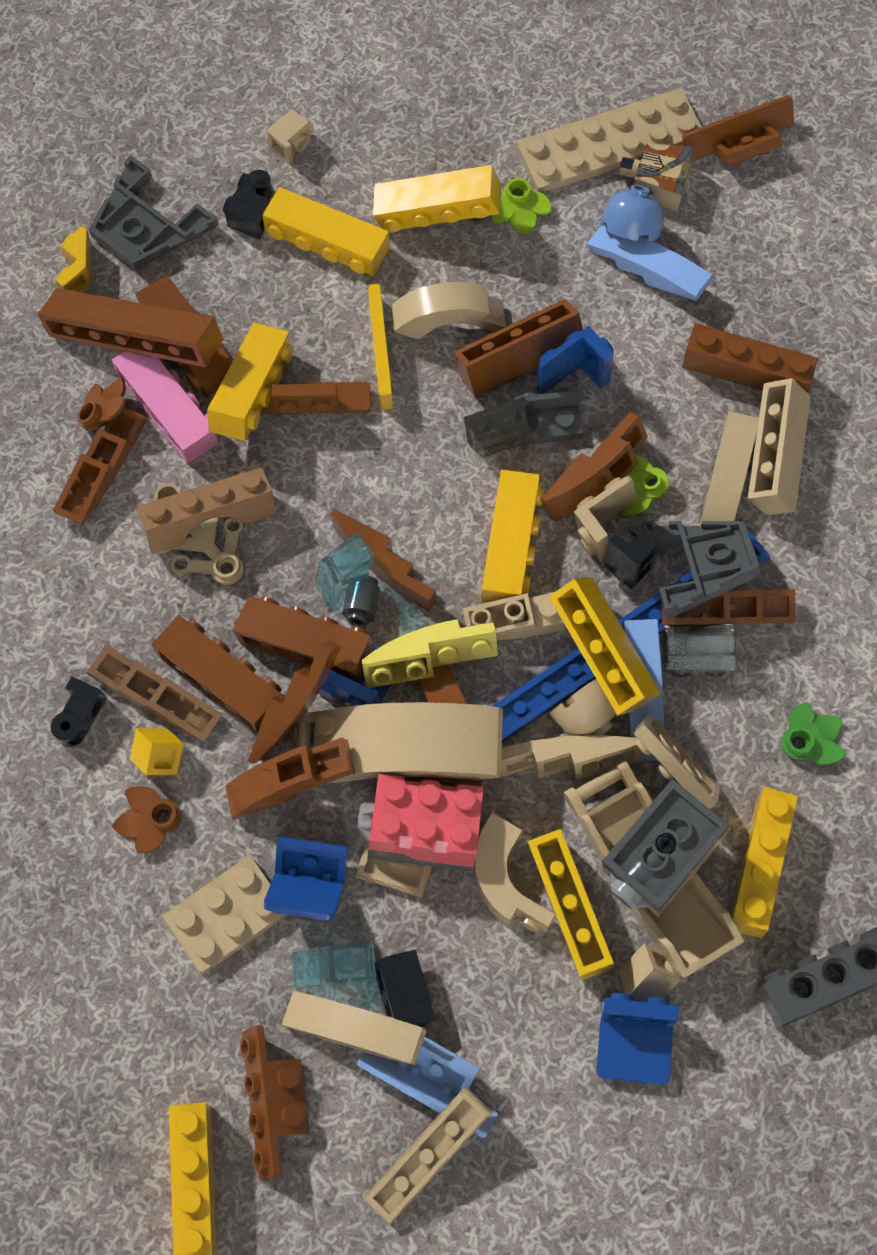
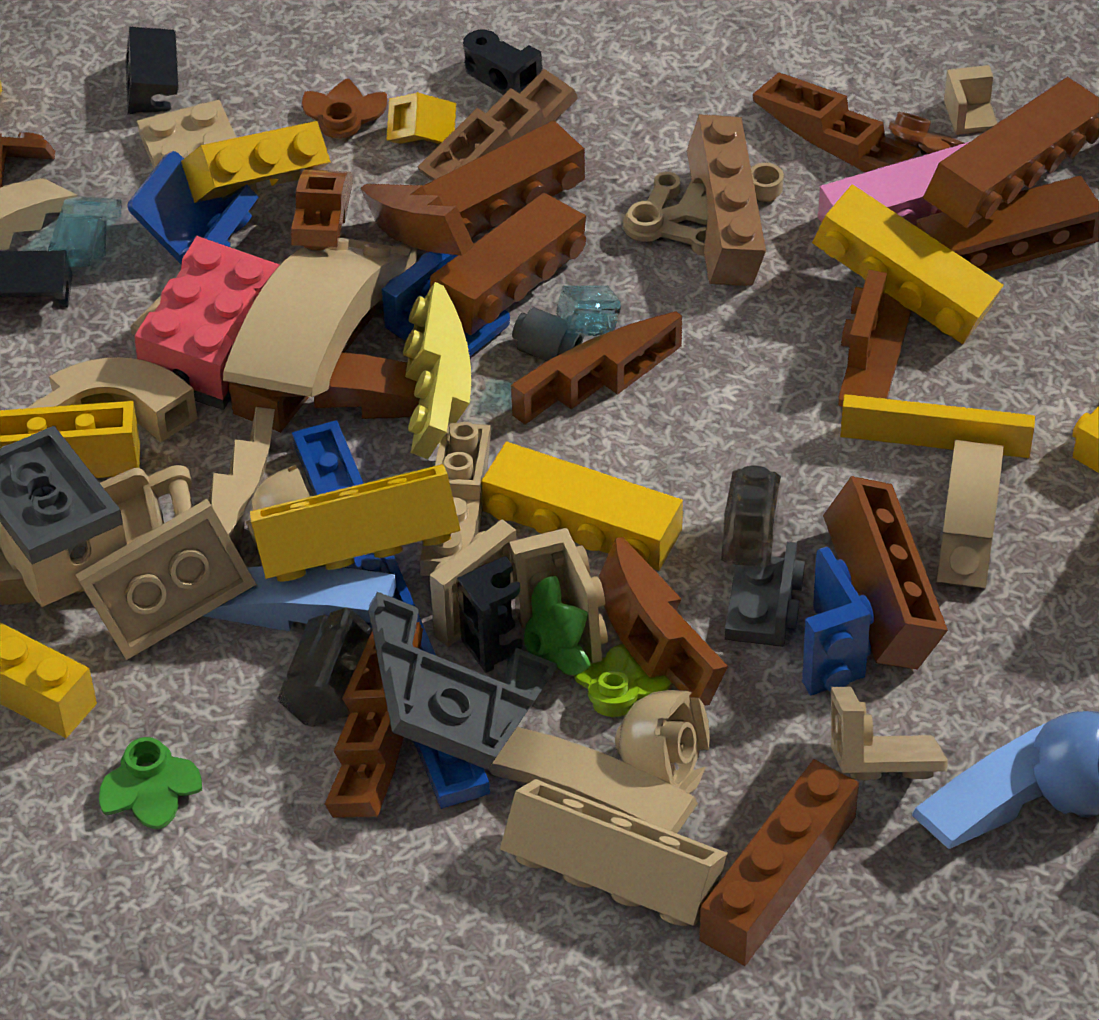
camera: 105 degrees right, 20 degrees down
(56, 386) = (969, 99): none -> tan panel
(139, 982) = (150, 68): none -> black hinge
(270, 856) = (271, 155): none -> yellow arch
(611, 573) = (483, 549): none -> tan plate
(632, 515) = (556, 629): none -> bright green plate
(655, 322) = (870, 755): none -> tan bracket
(689, 441) = (665, 731): none -> tan cylinder

